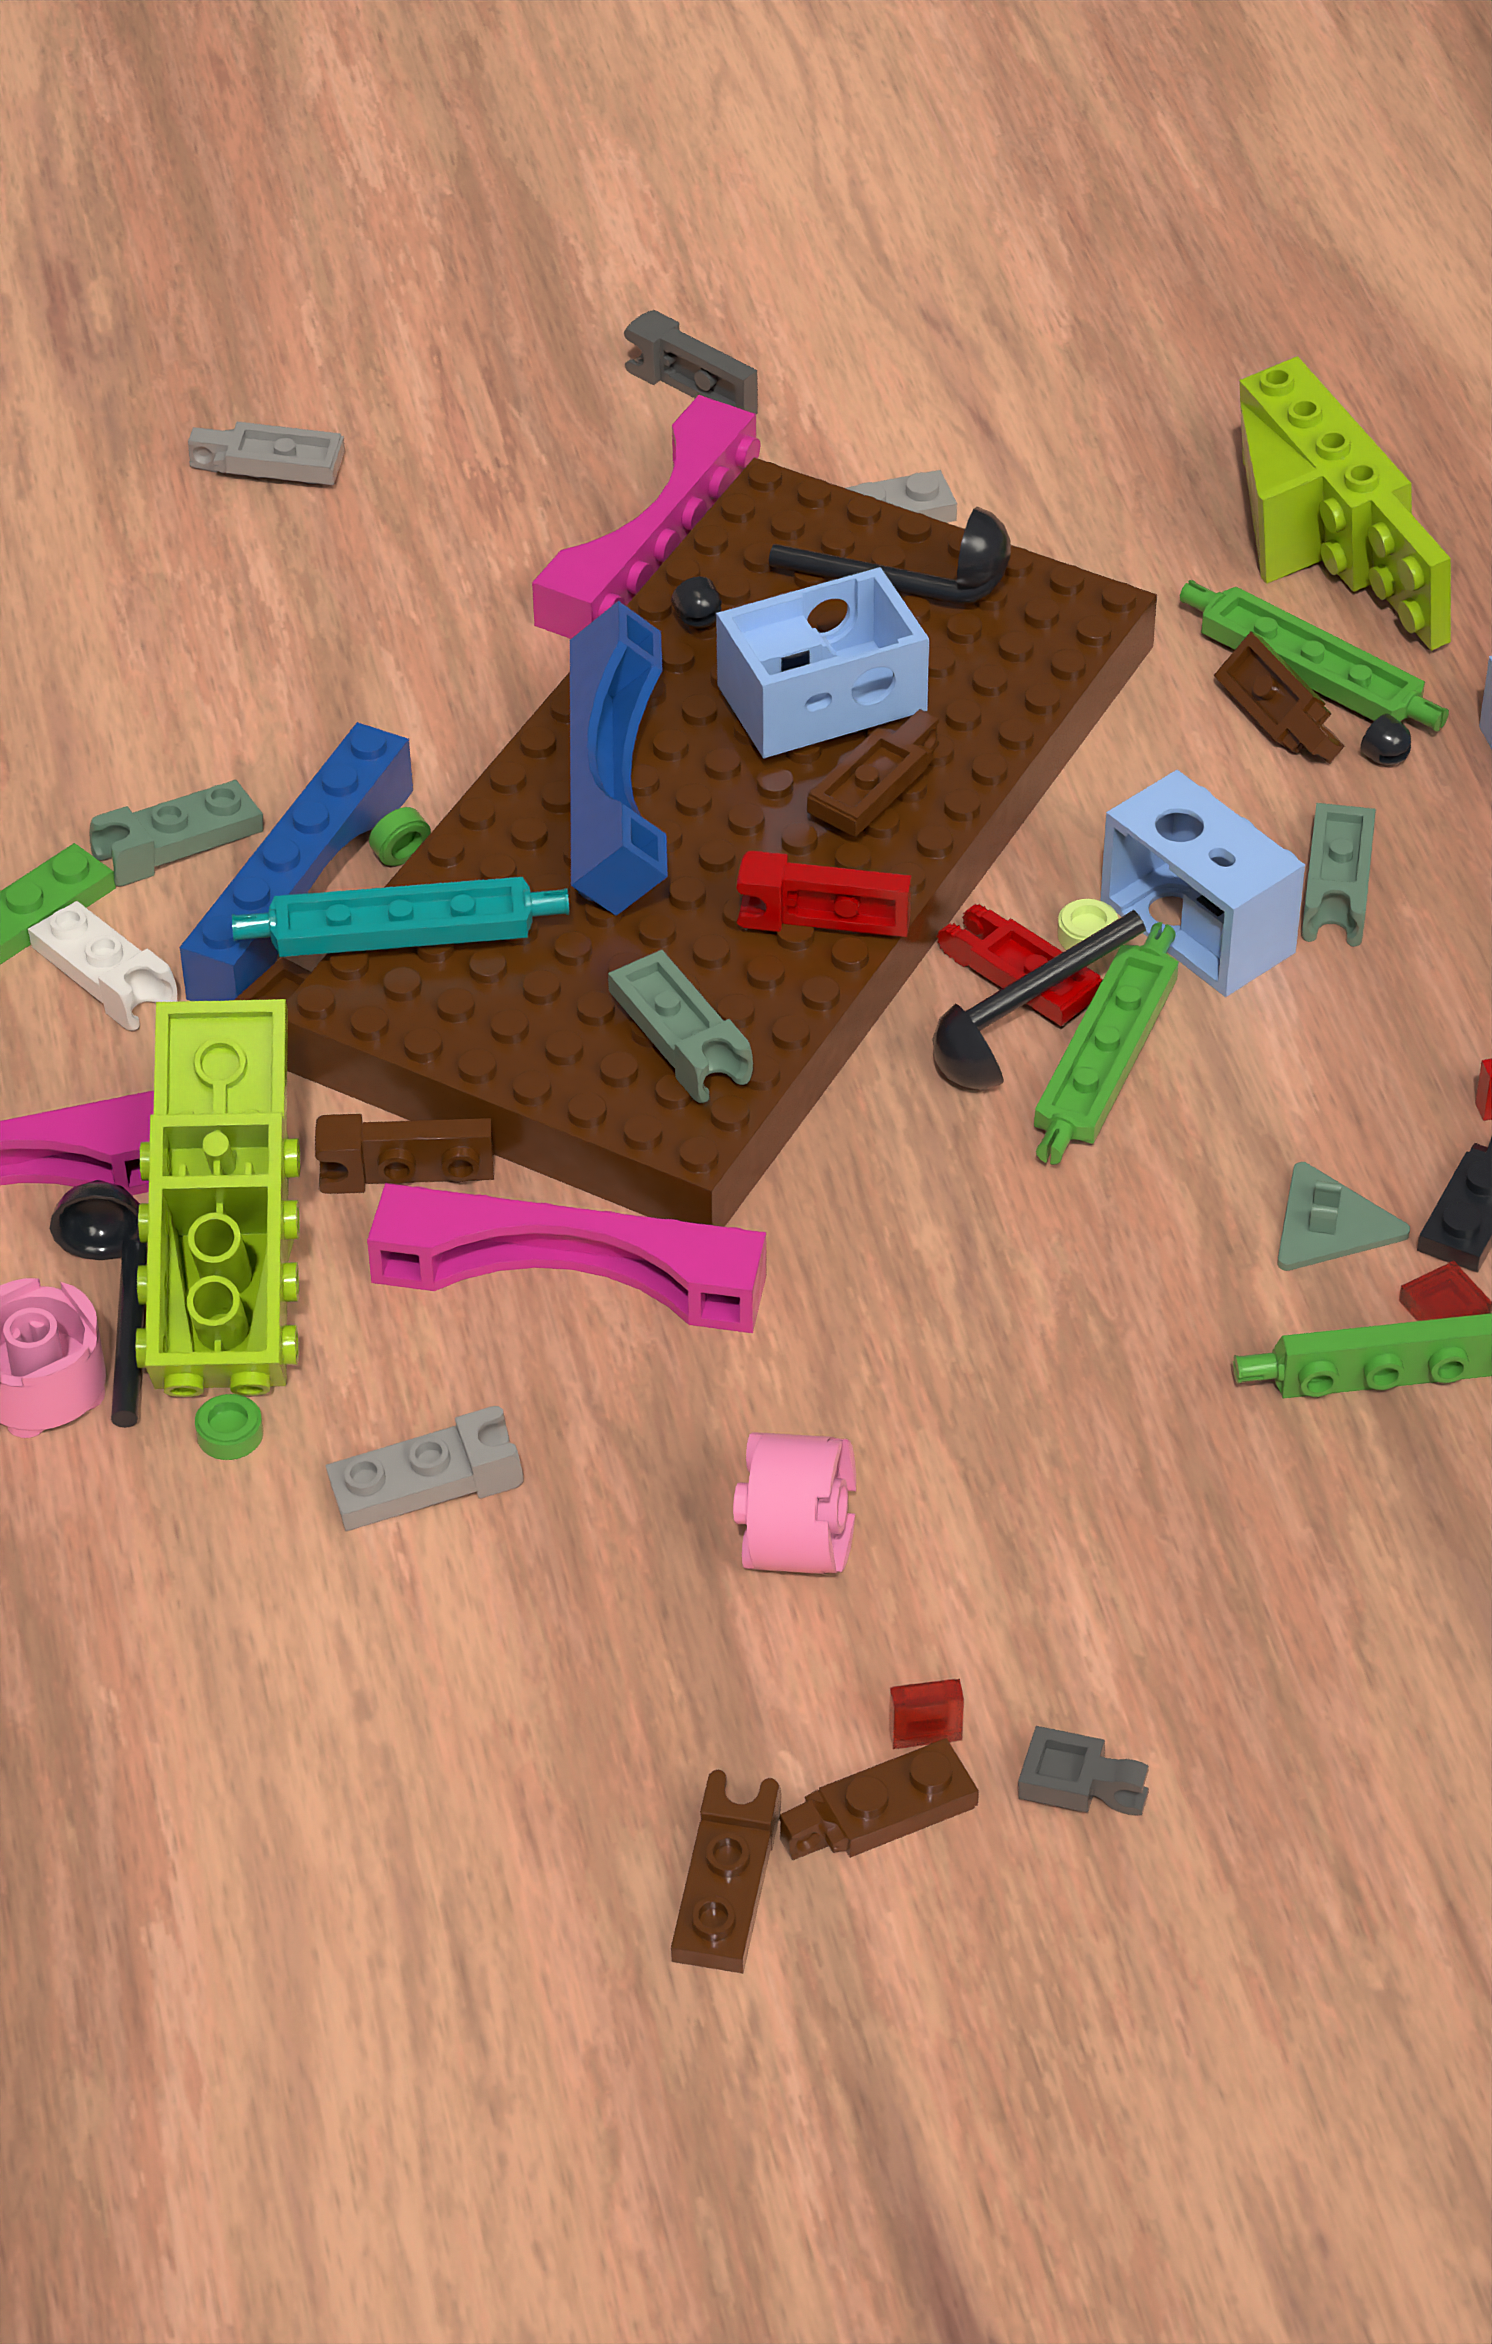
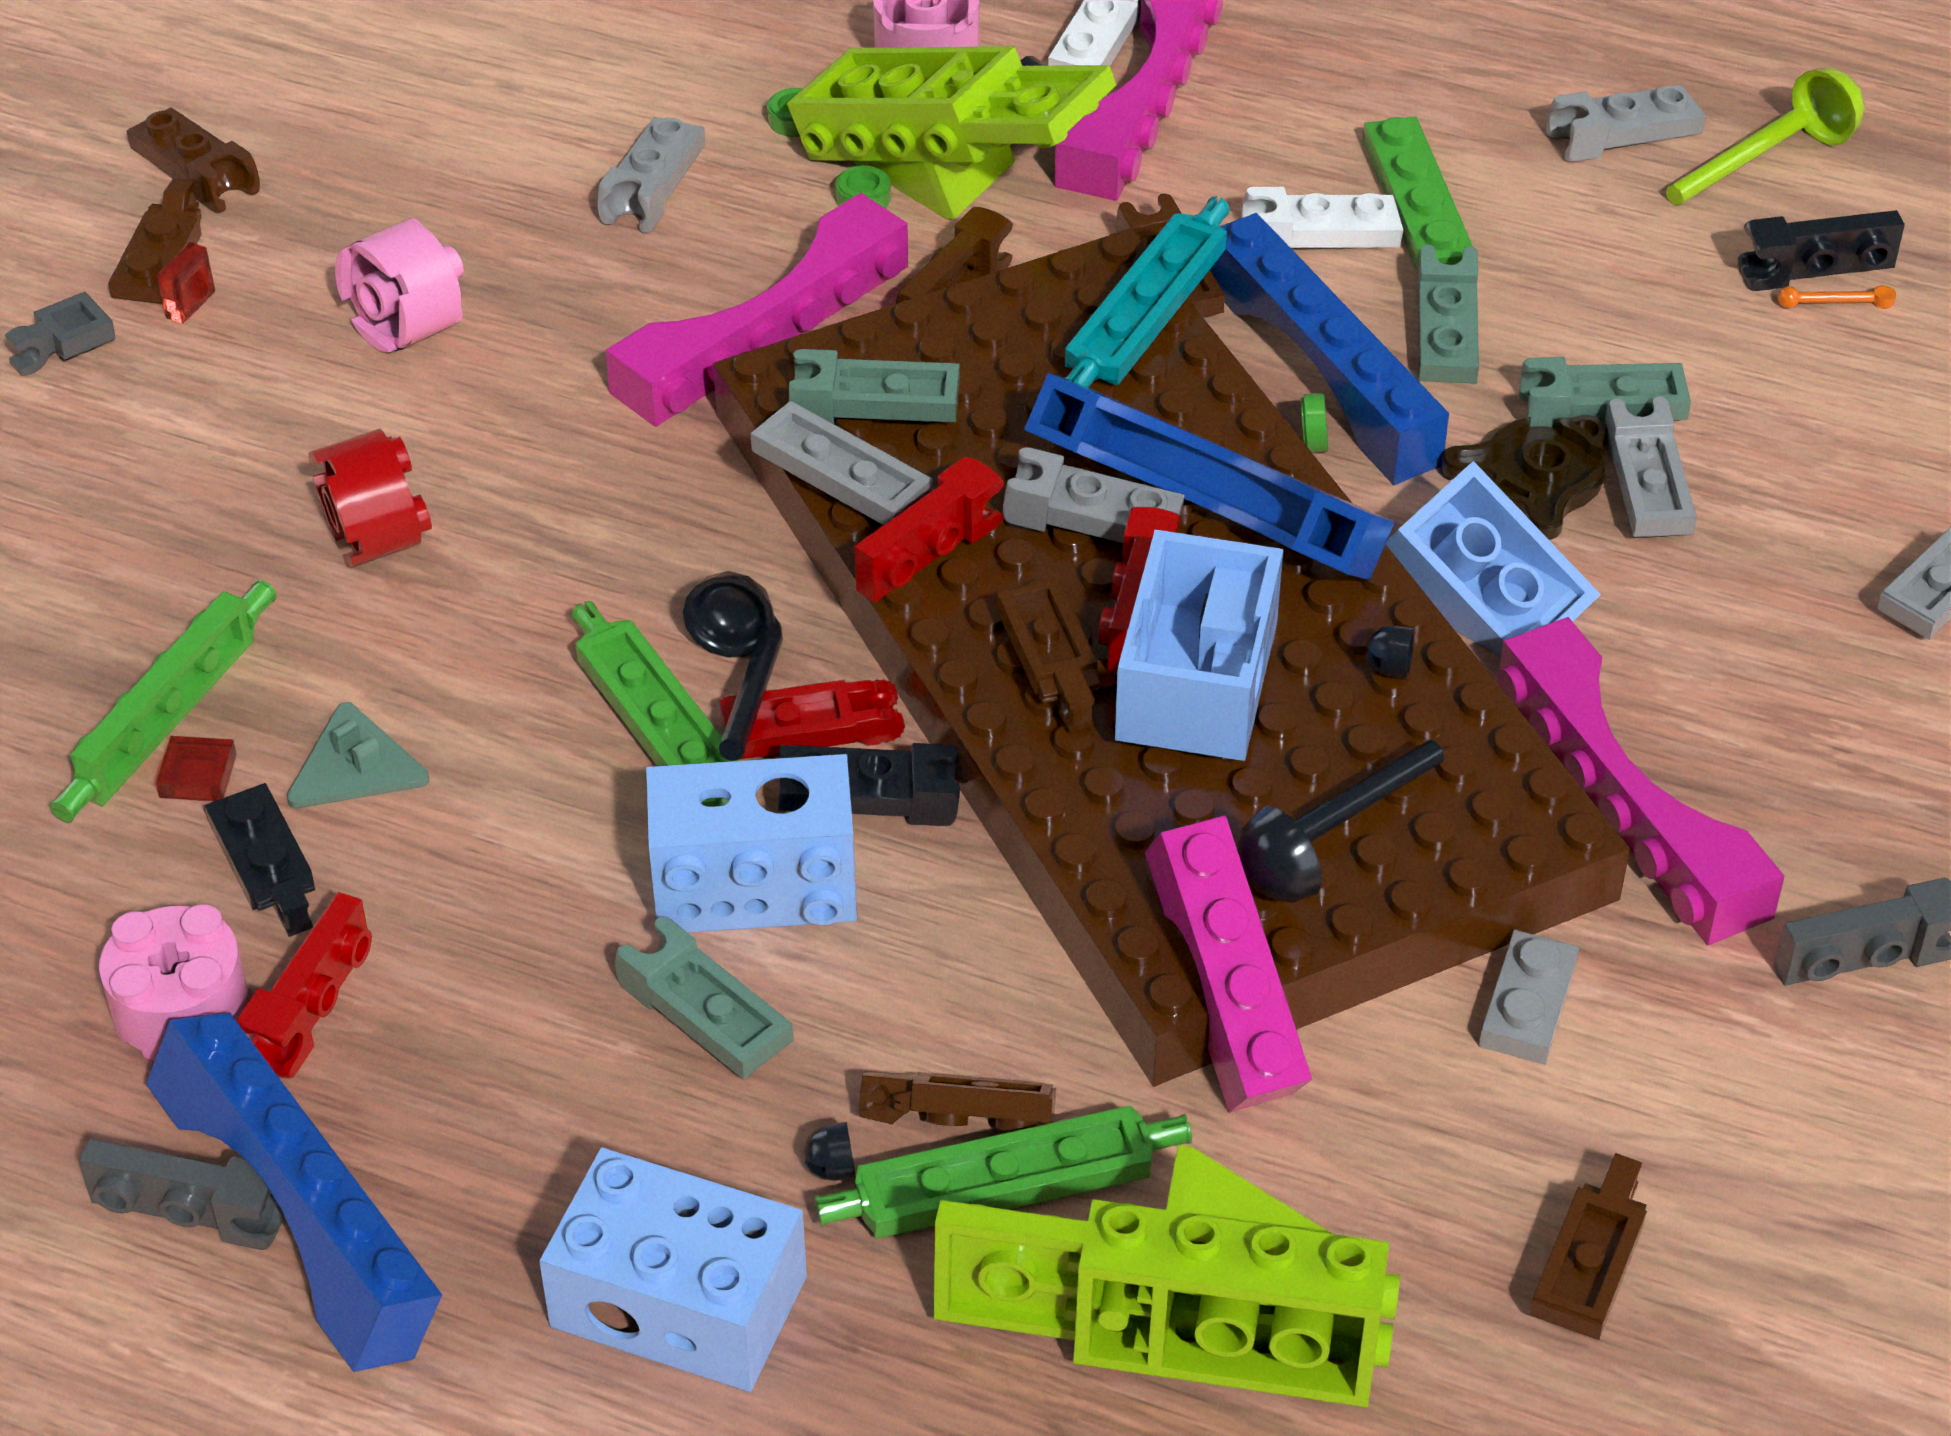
camera: 125 degrees right, 0 degrees up
(206, 699) = (1576, 390): none -> sand green plate
(280, 640) = (1649, 470): none -> light grey plate
(319, 1306) = (865, 180): none -> bright green tile
(323, 704) = (1540, 467): none -> dark brown tile
(491, 676) = (1488, 563): none -> light blue slope
(696, 838) = (1076, 497): none -> light grey plate
(768, 752) = (1128, 576): none -> red plate
(792, 994) = (839, 463): none -> light grey plate
(1045, 571) = (1249, 1017): none -> dark pink arch
(1052, 883) = (888, 782): none -> black plate
(1080, 392) = (1592, 1252): none -> reddish brown hinge
(1085, 1334) = (369, 496): none -> red brick

